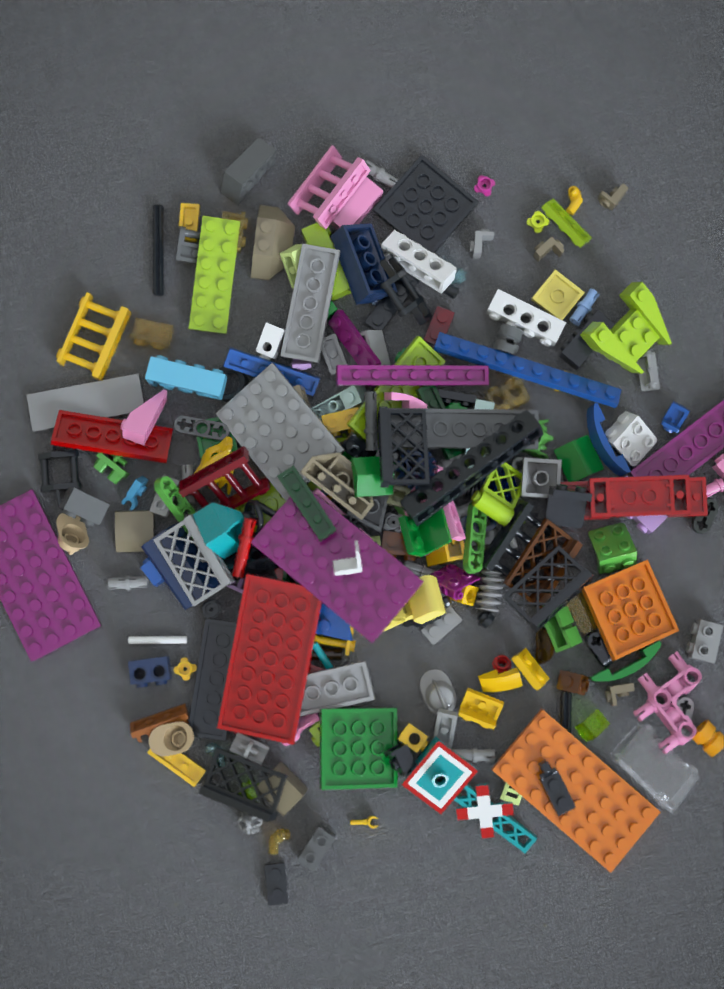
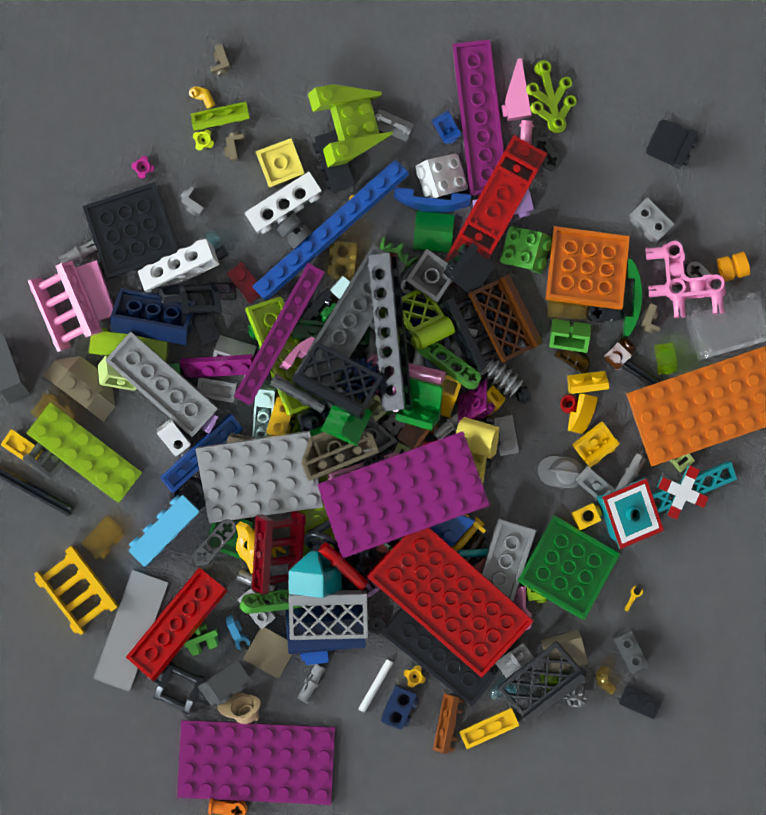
camera: 60 degrees left, 5 degrees up
(143, 419) = (177, 588): bright pink slope -> none
(171, 739) = (468, 721): tan piece -> none
(306, 503) = (338, 490): dark green plate -> none
(349, 565) = (412, 486): white bracket -> none
(400, 758) = (598, 537): black brick -> none
(555, 789) = (699, 422): black hinge -> none
(562, 596) = (545, 324): black fence -> none
(584, 307) = (303, 146): light blue pin -> none

